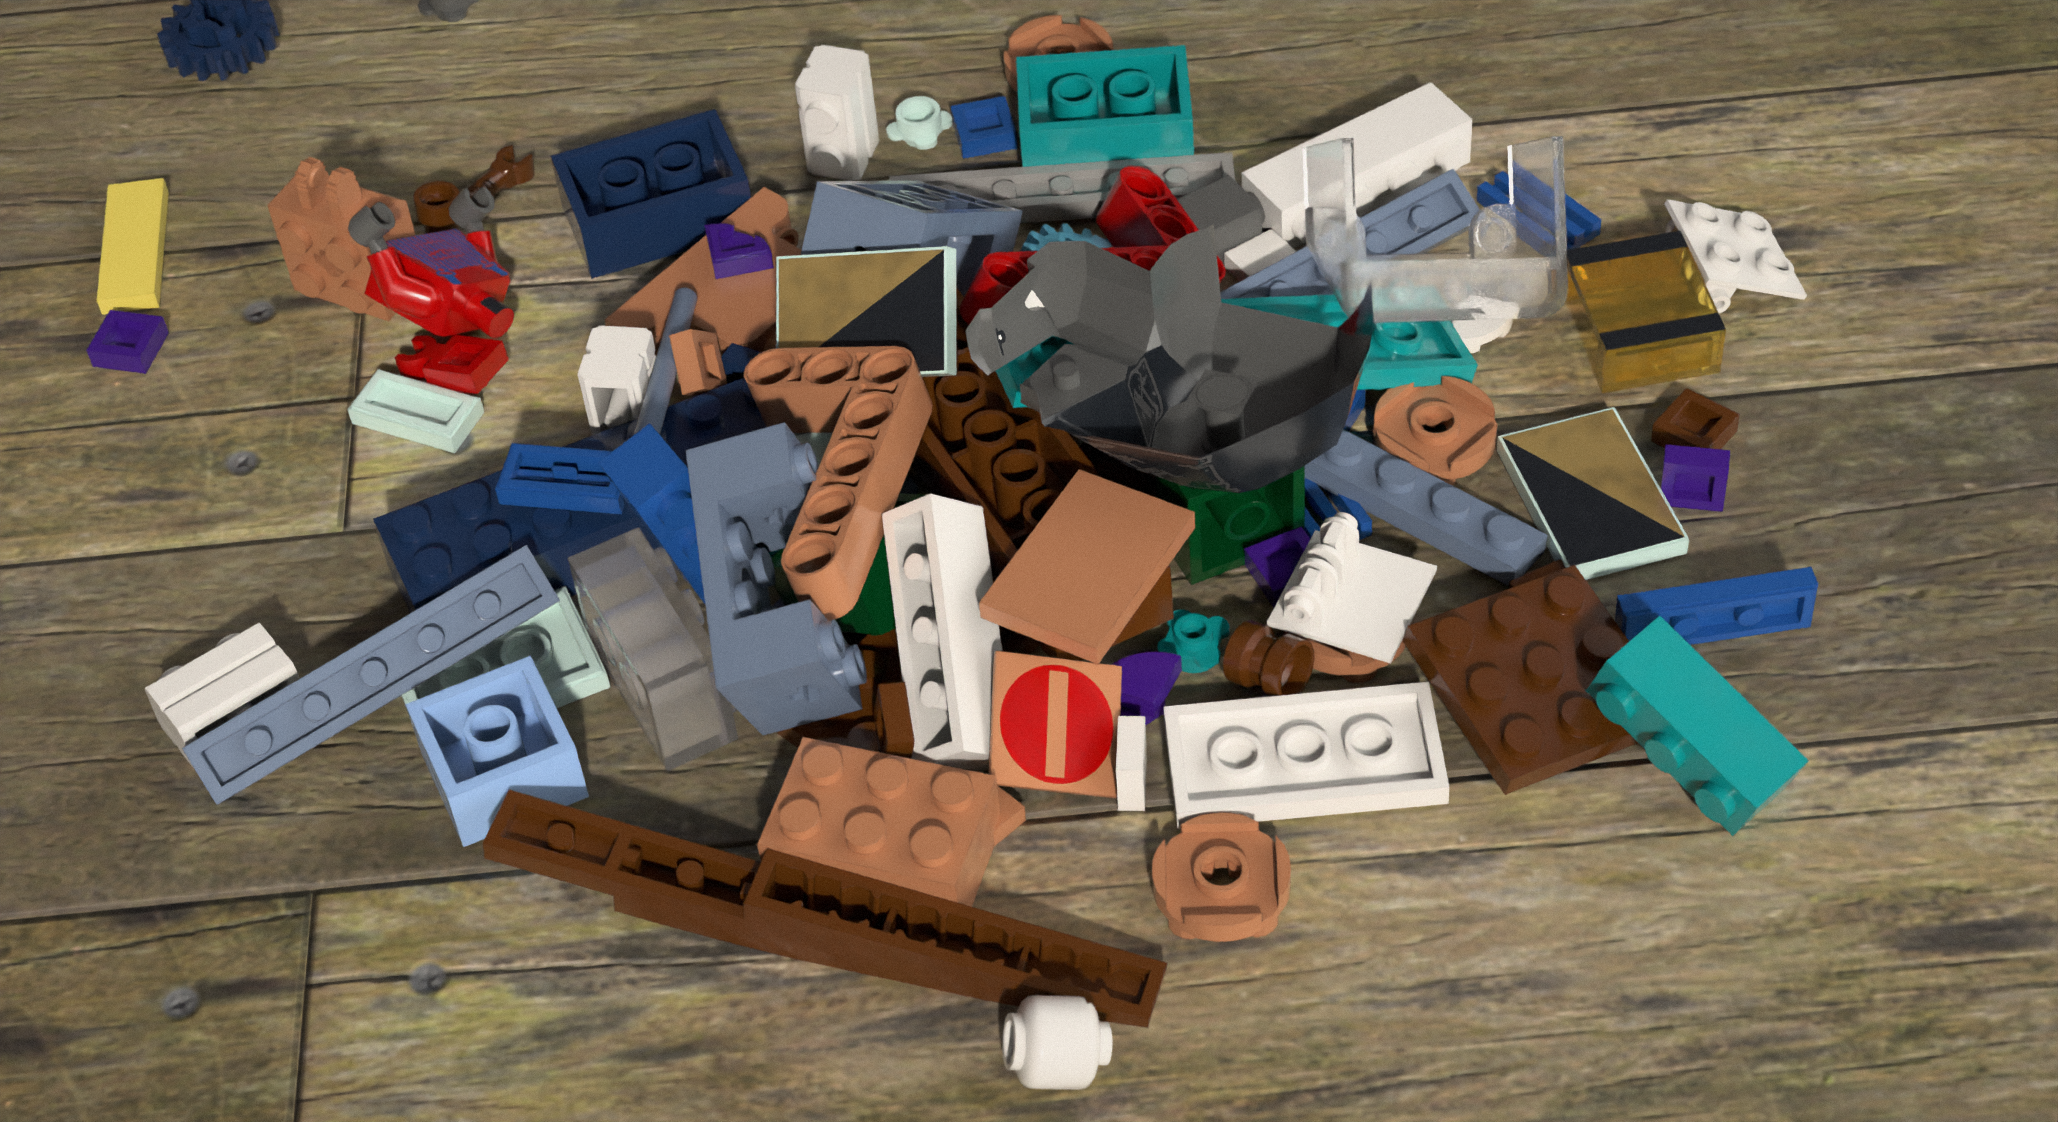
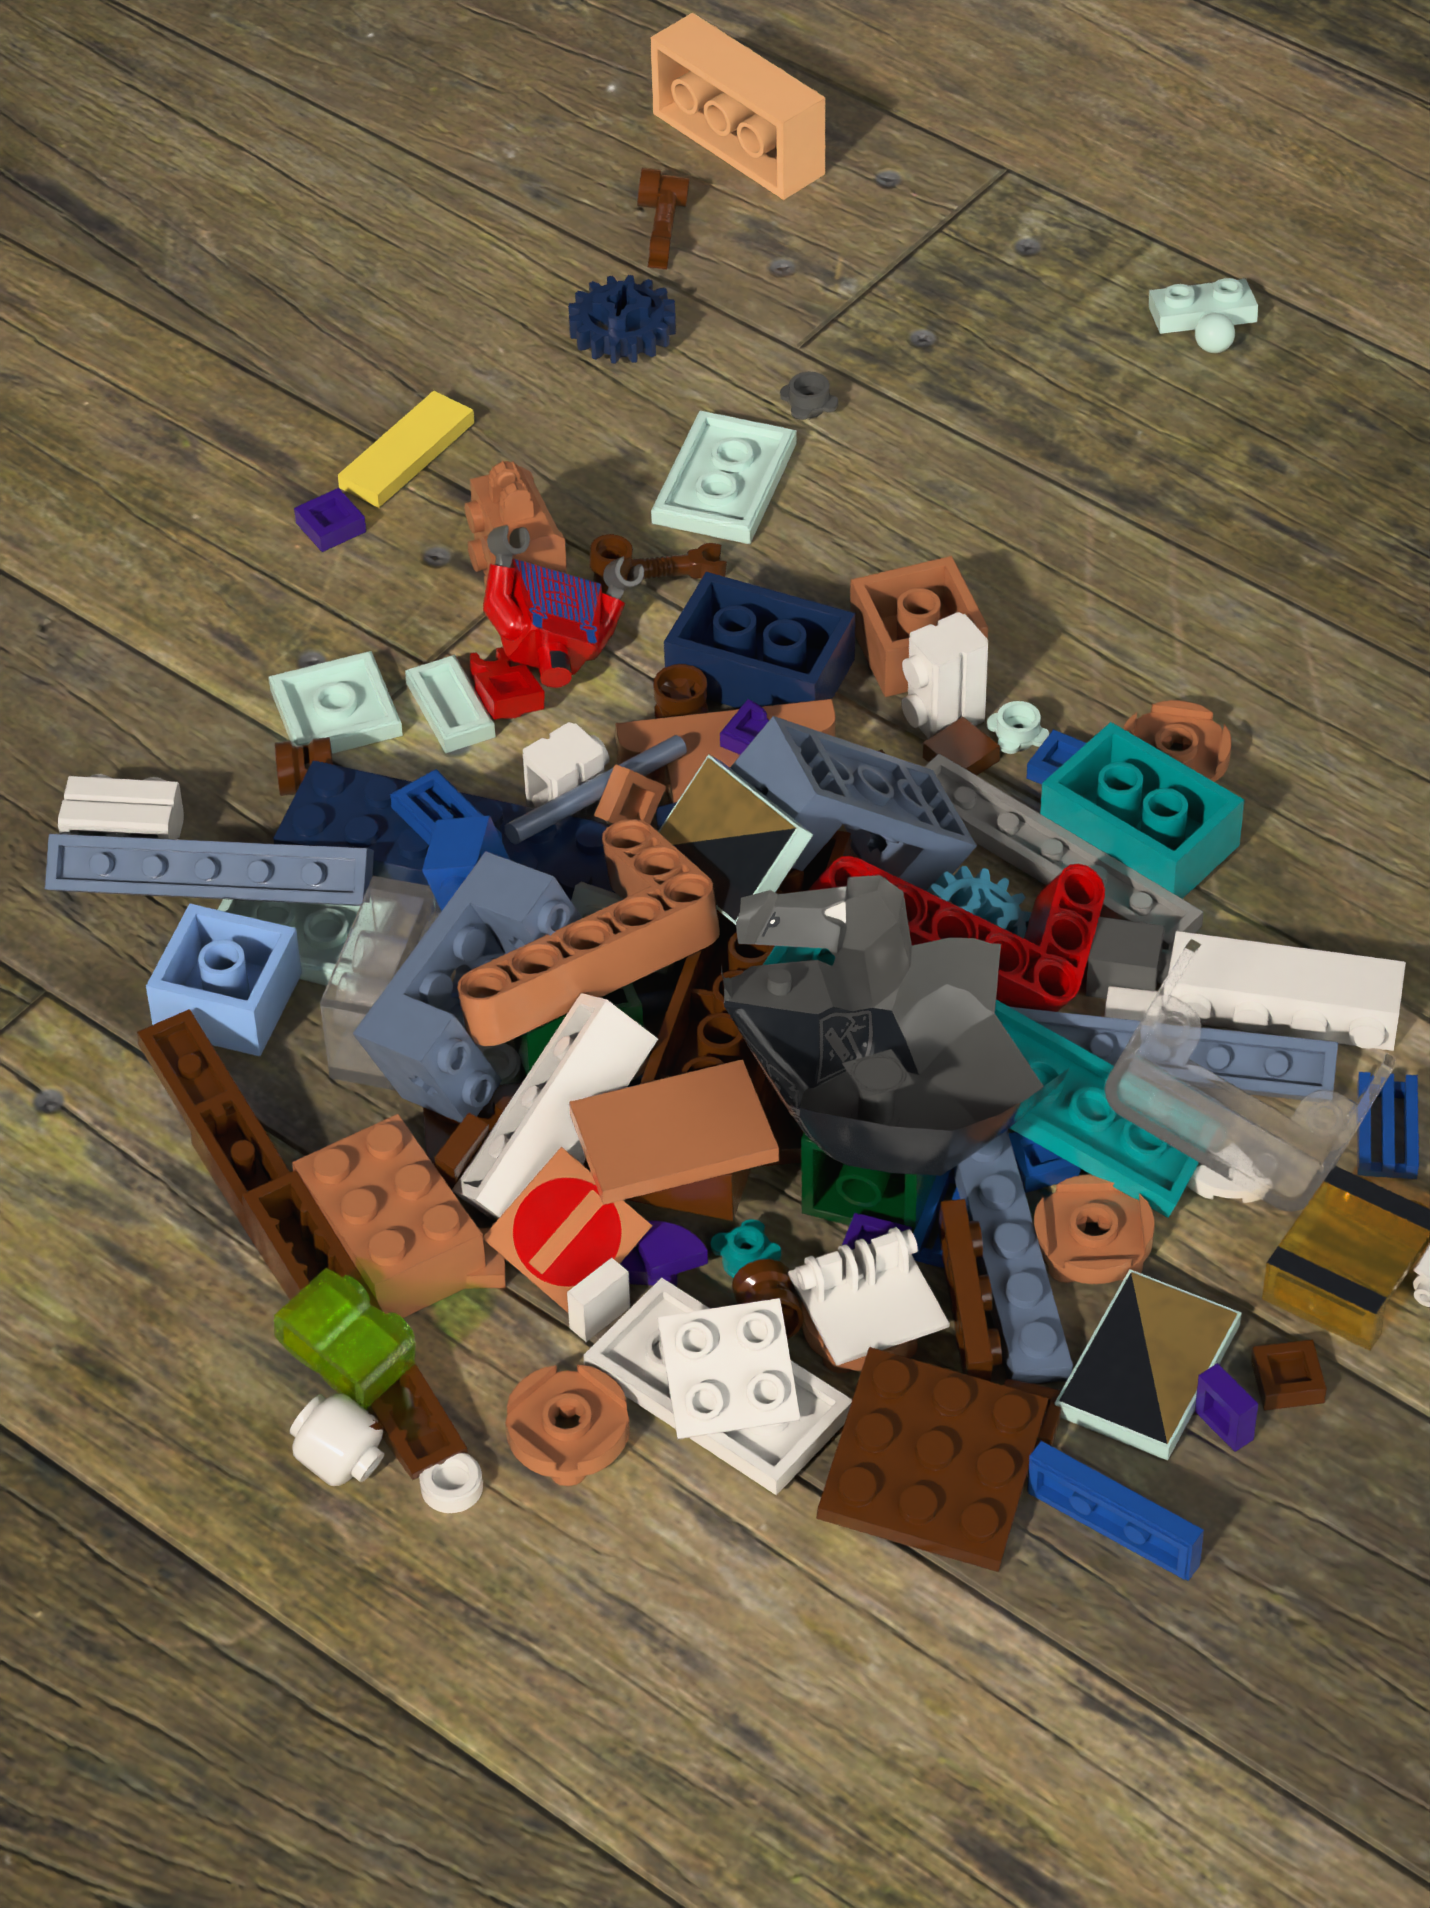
camera: 40 degrees right, 0 degrees up
(312, 480) = (337, 701): none -> light aqua tile
(348, 540) = (292, 761): none -> reddish brown wheel
(447, 99) = (724, 477): none -> light aqua tile
(618, 275) = (680, 691): none -> reddish brown wheel
(753, 92) = (900, 602): none -> nougat brick
(893, 159) = (964, 746): none -> reddish brown tile
(983, 947) = (345, 1337): none -> clear neon green brick
(1183, 1004) = (453, 1484): none -> white tile
(1319, 727) = (728, 1368): none -> white hinge
(1401, 527) = (968, 1291): none -> reddish brown plate
(1695, 726) = (976, 1572): teal brick -> none

